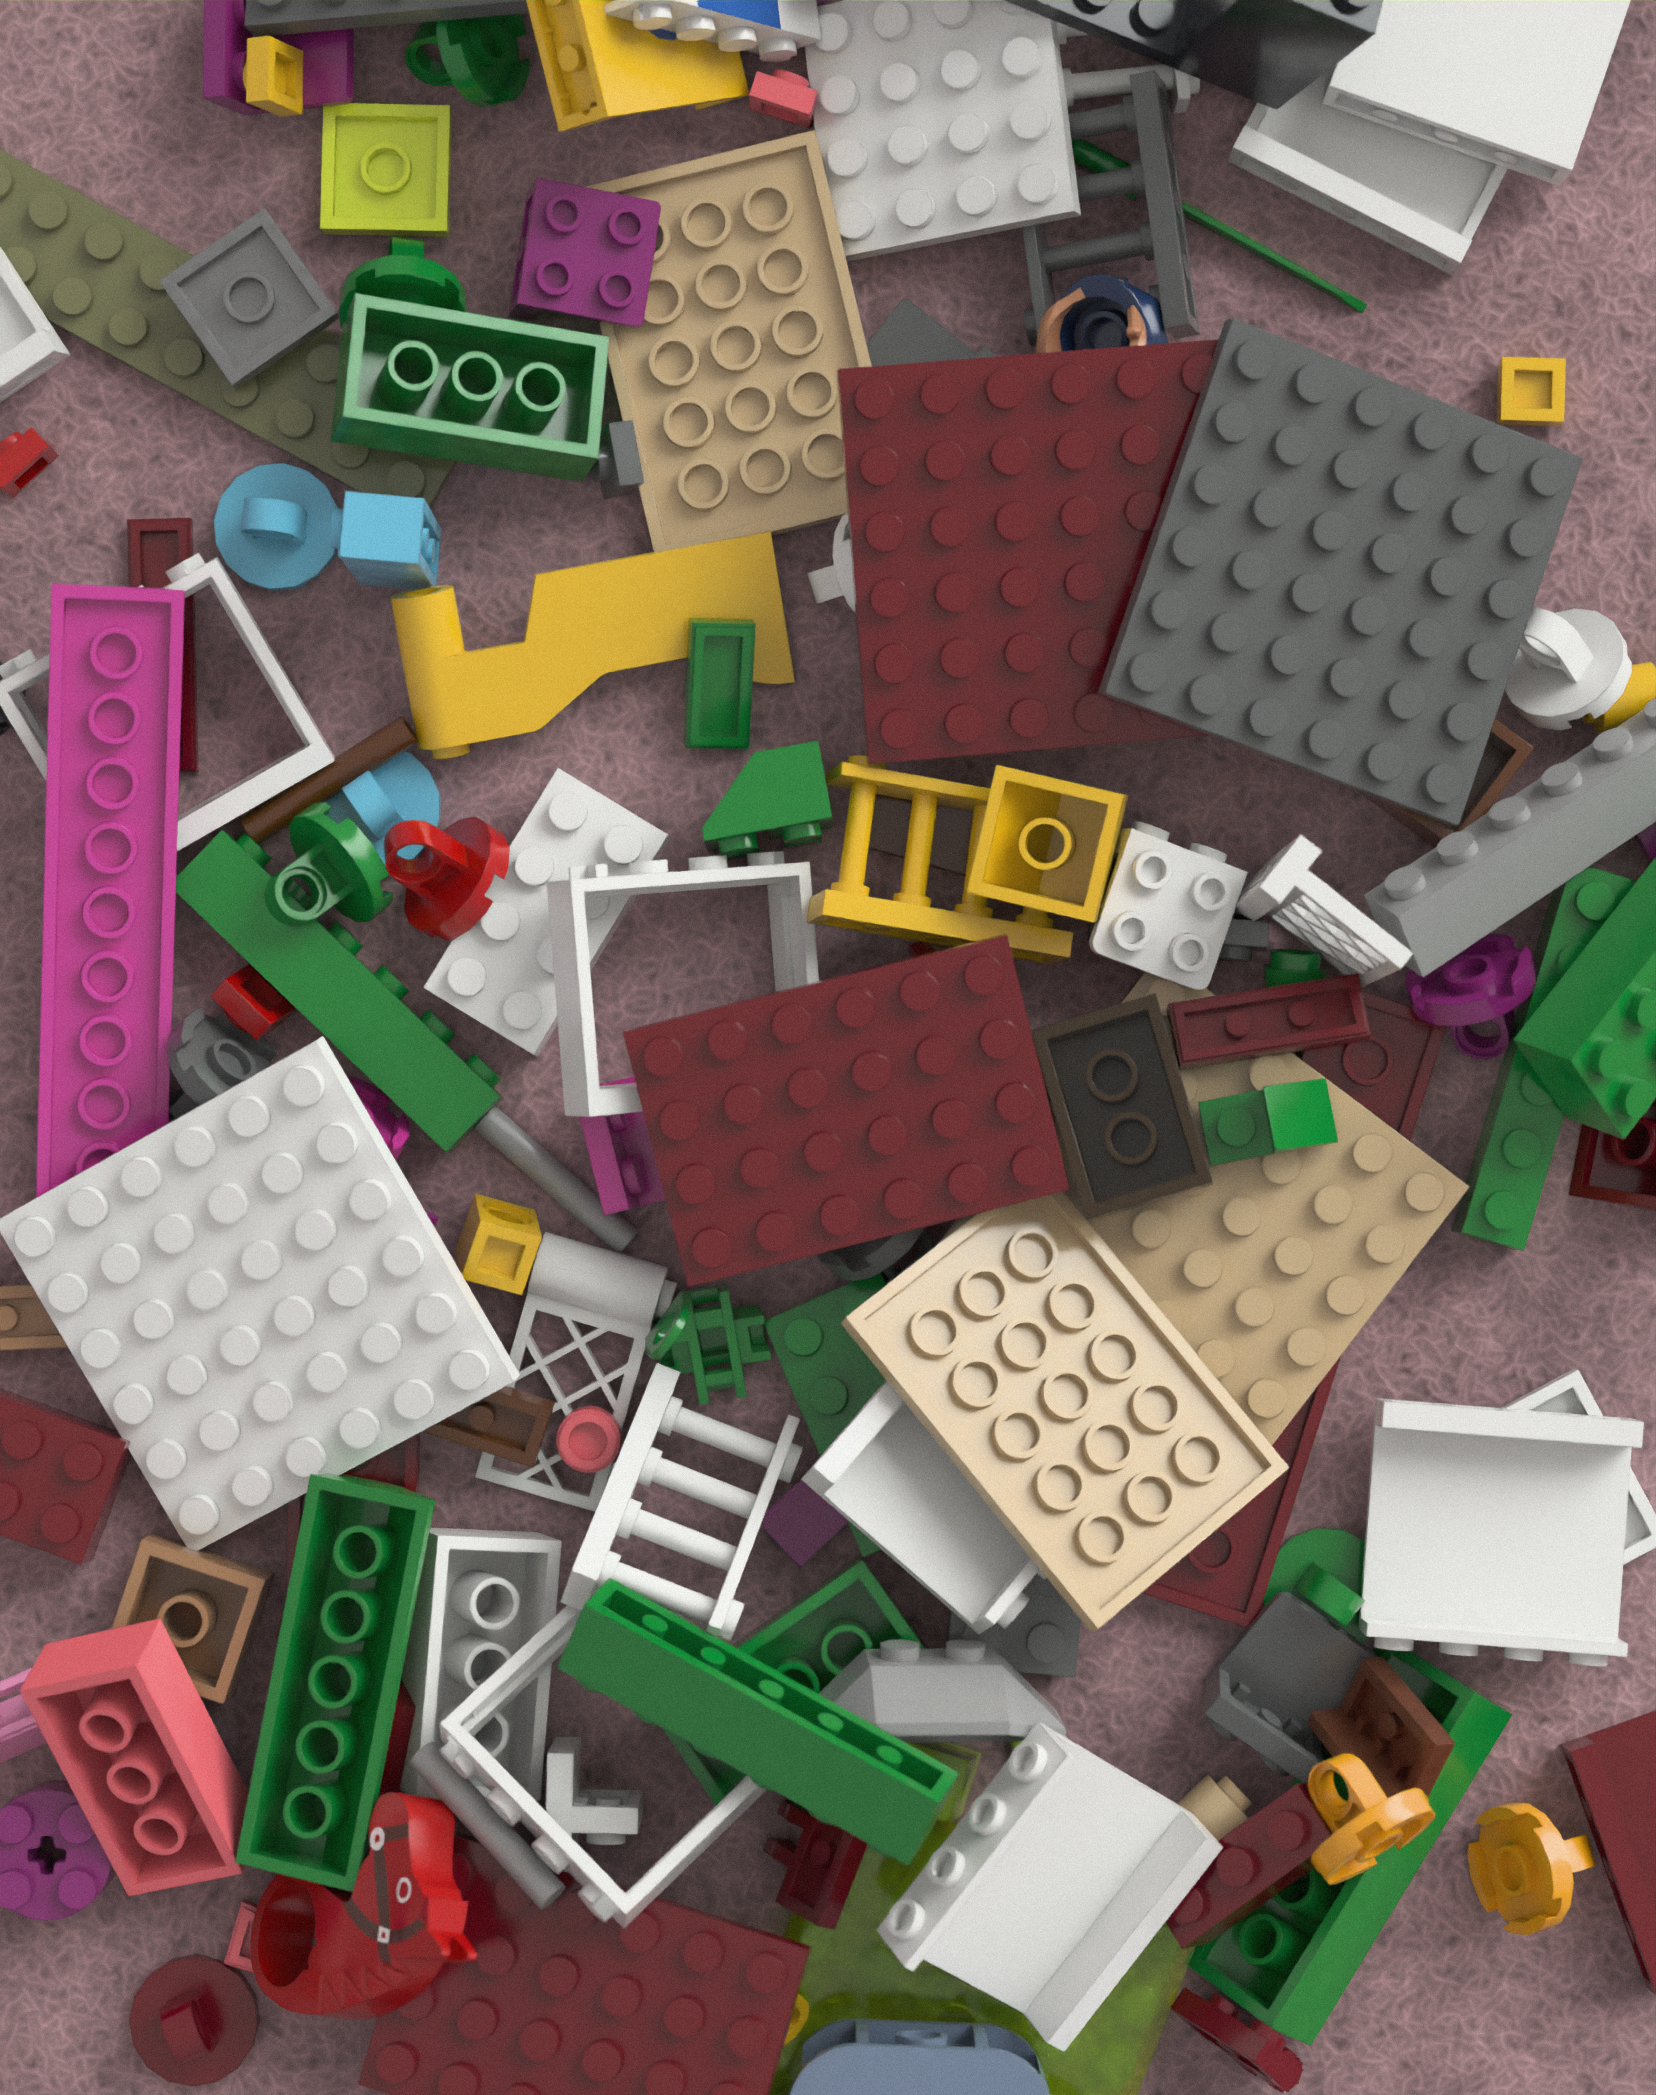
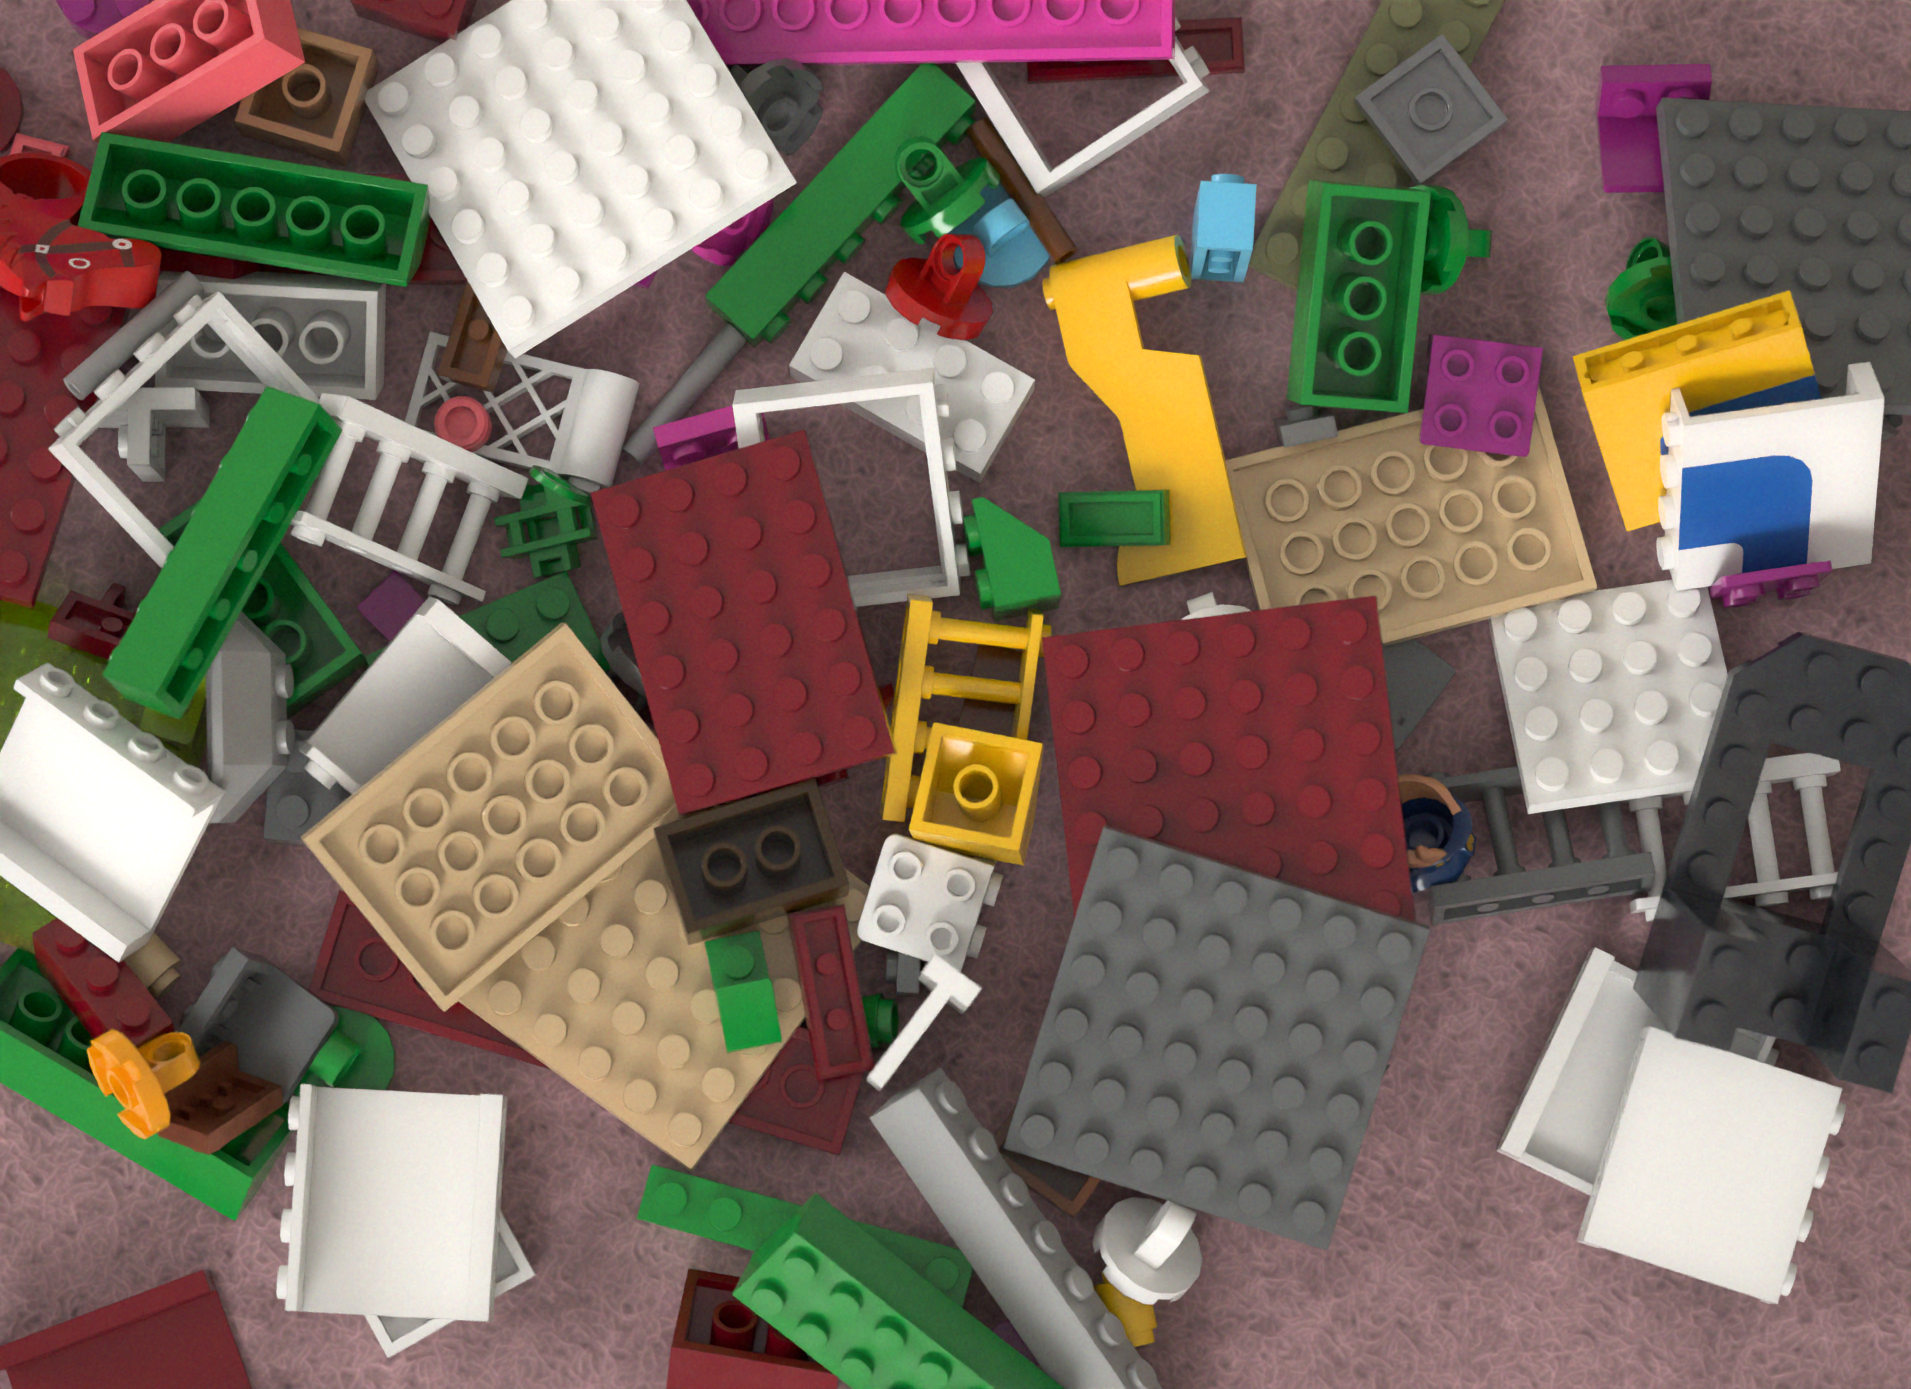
camera: 90 degrees right, 5 degrees down
(252, 1002) = (829, 131): red plate -> none
(274, 76) = (1622, 125): yellow plate -> none
(276, 527) = (1240, 136): medium azure tile -> none
(386, 170) = (1550, 225): neon yellow plate -> none
(498, 1244) = (627, 342): yellow brick -> none
(784, 97) = (1627, 561): coral plate -> none
(1099, 160) = (1581, 841): green sword -> none
(1475, 988) = (866, 1173): magenta tile -> none
(1525, 1867) = (101, 1233): light orange tile -> none
(1531, 391) = (1393, 1219): yellow plate -> none

